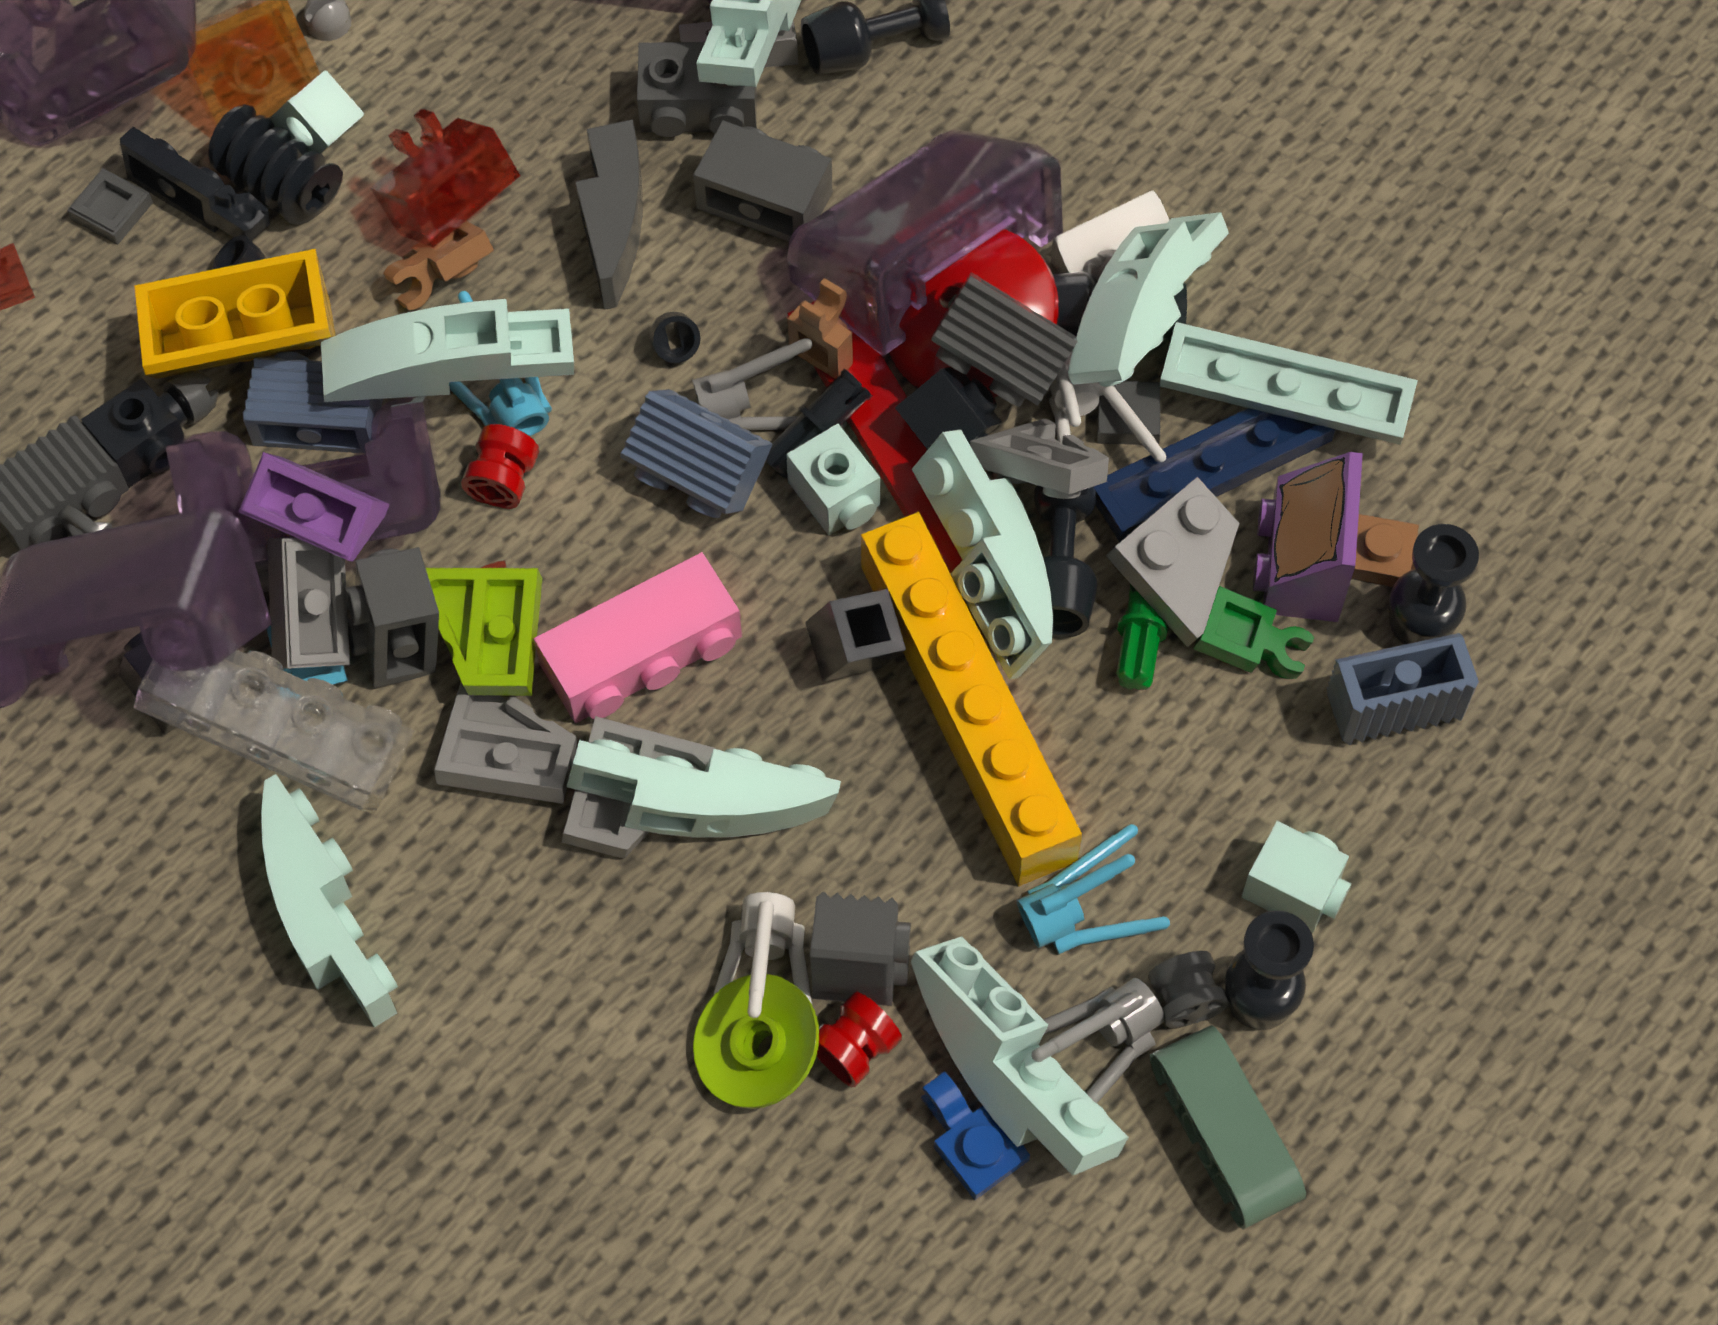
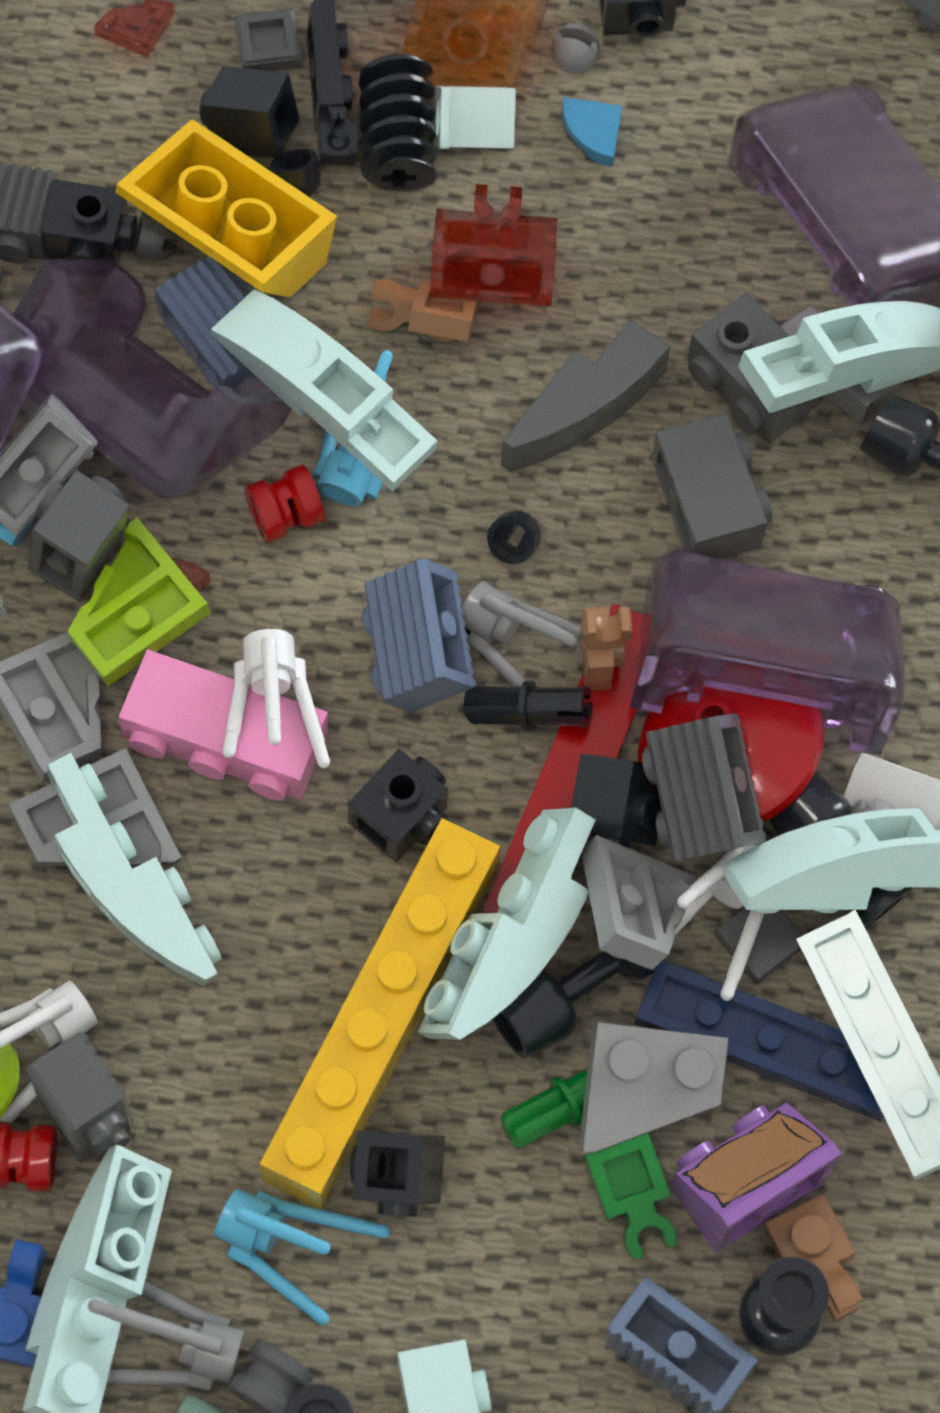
camera: 45 degrees right, 5 degrees up
(159, 246) = (251, 110): none -> black brick
(312, 506) = (94, 401): medium lavender slope -> none
(402, 52) = (592, 127): none -> dark azure tile
(639, 558) = (269, 670): none -> white plant
(815, 563) = (400, 805): none -> black brick
(834, 480) = (488, 760): light aqua brick -> none
(855, 635) = (357, 884): black brick -> none
(1102, 775) = (397, 1170): none -> black brick

